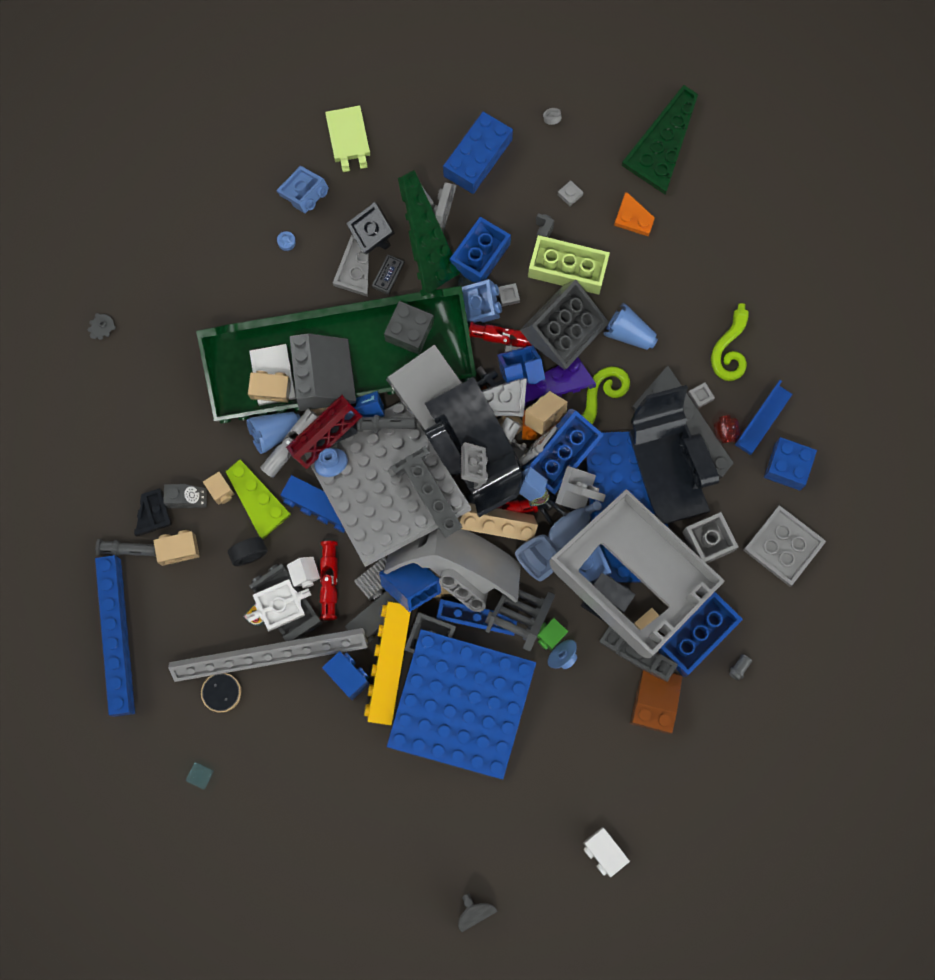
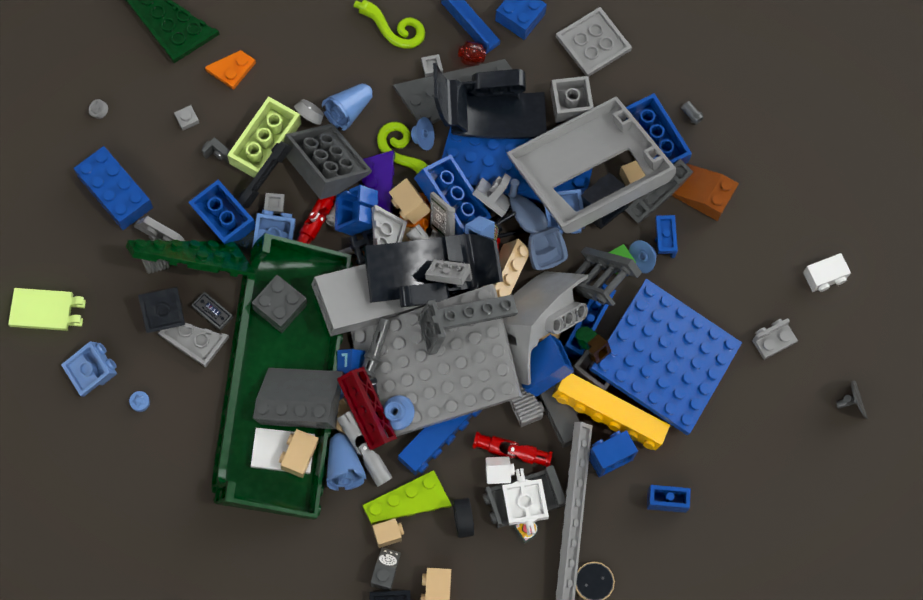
camera: 80 degrees left, 5 degrees down
(317, 742) = (668, 498): none -> blue brick
(440, 630) = (594, 343): none -> leg
(509, 269) = (278, 154): none -> black container
(517, 813) = (774, 339): none -> light grey bracket
(592, 672) = (666, 235): none -> blue panel
(609, 296) = (309, 111): none -> light grey hat
(623, 408) = (423, 133): none -> medium blue piece

